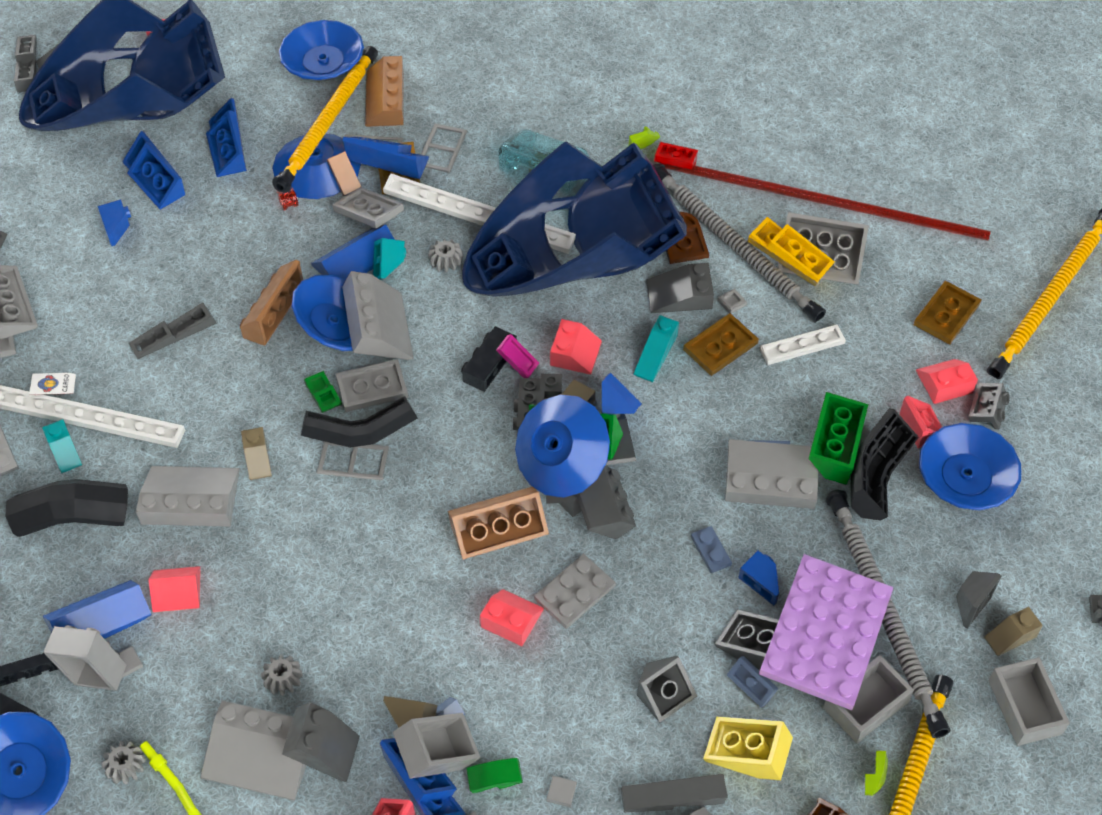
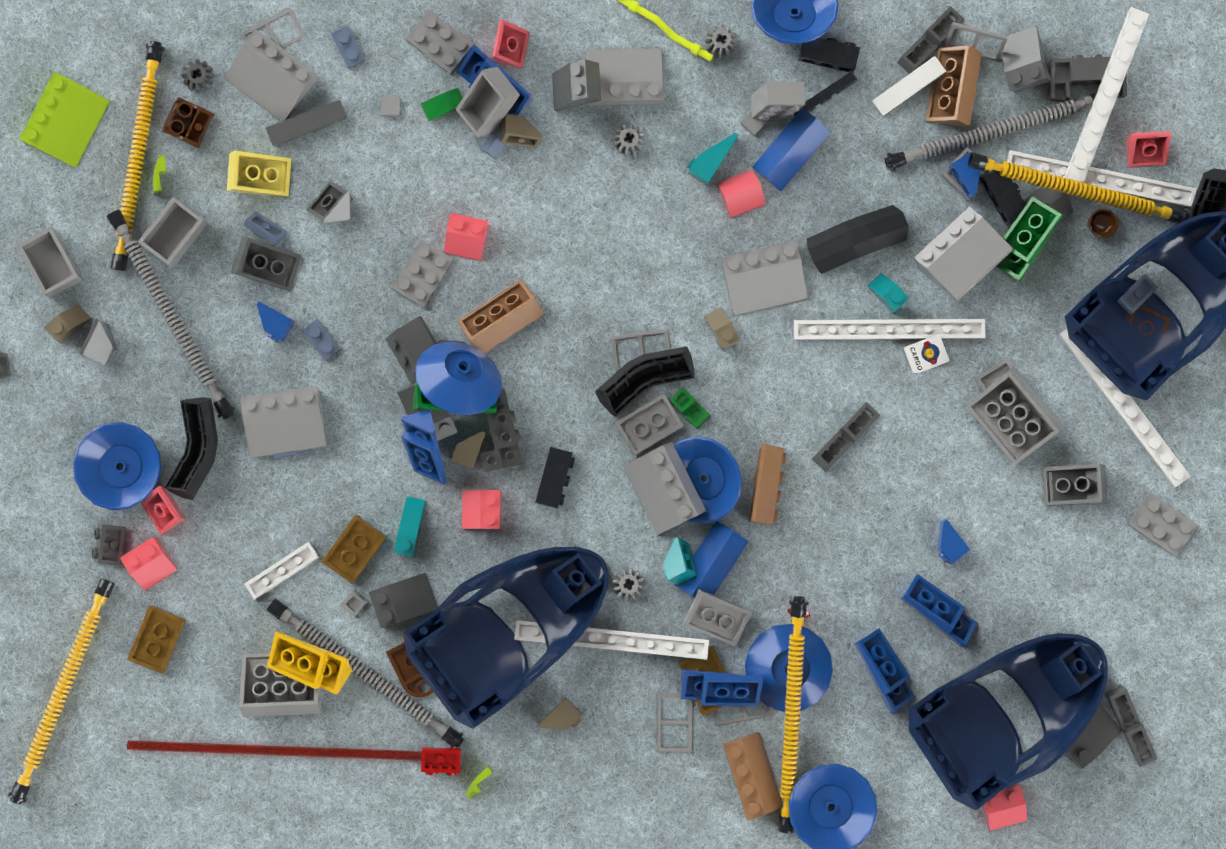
camera: 160 degrees right, 30 degrees up
(195, 627) = (709, 161): none -> teal slope
(343, 173) = (754, 654): tile -> none
(517, 356) = (529, 483): dark pink tile -> none
(528, 150) = (568, 726): clear light blue windscreen -> none
(827, 632) = (211, 272): lavender plate -> none
(837, 437) = (231, 466): green slope -> none

